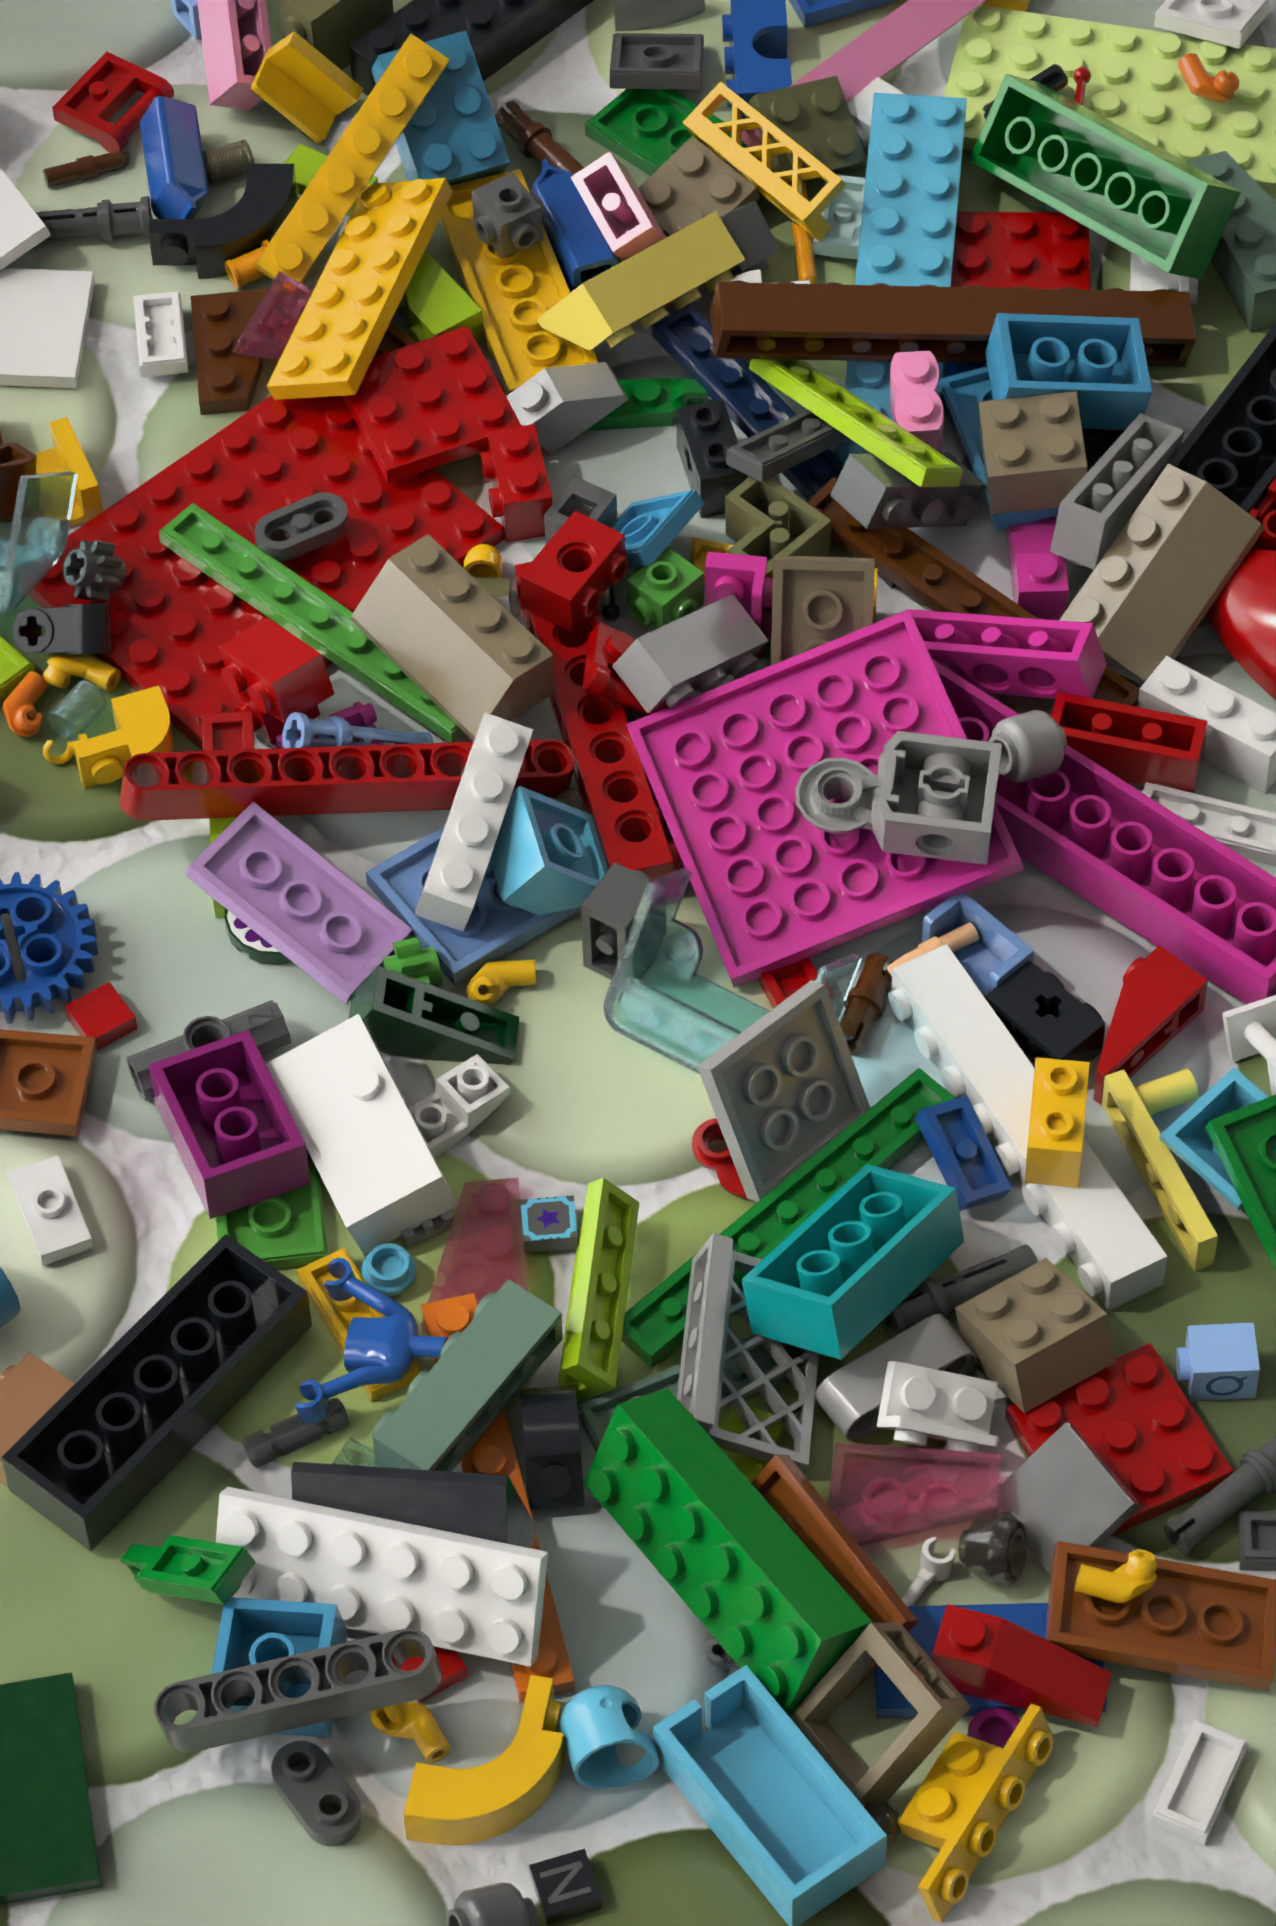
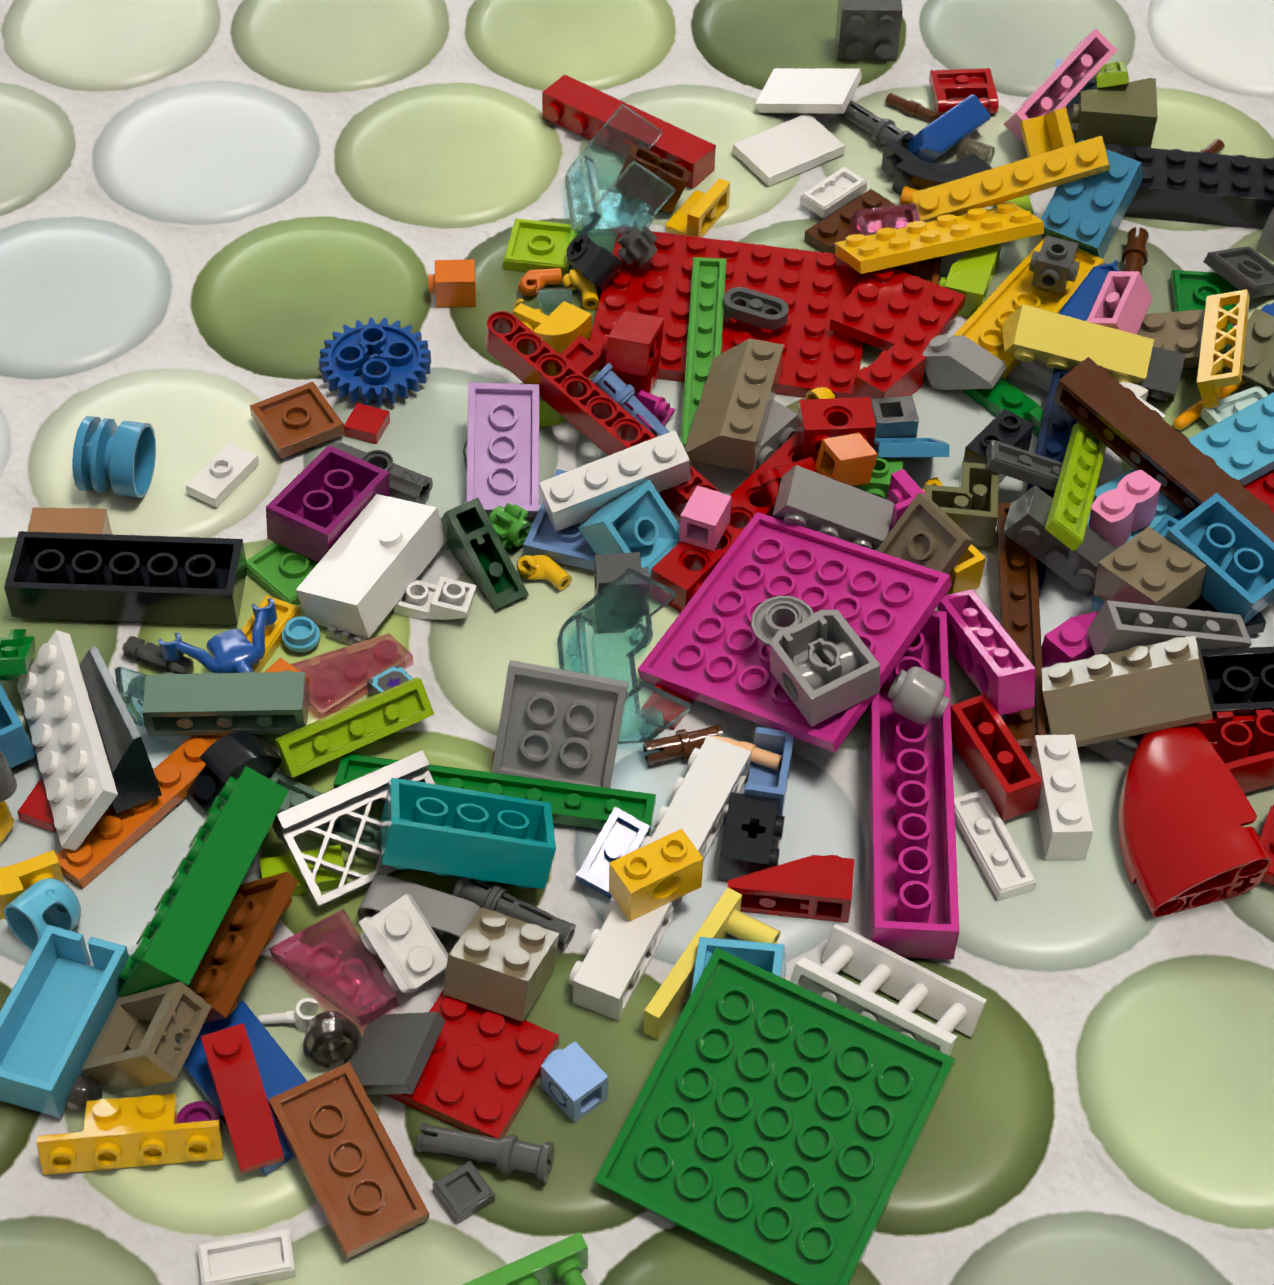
camera: 50 degrees right, 5 degrees down
(601, 774) = (705, 518): none -> bright pink brick
(644, 593) = (846, 459): none -> orange brick
(1121, 1584) = (340, 1116): yellow arm -> none

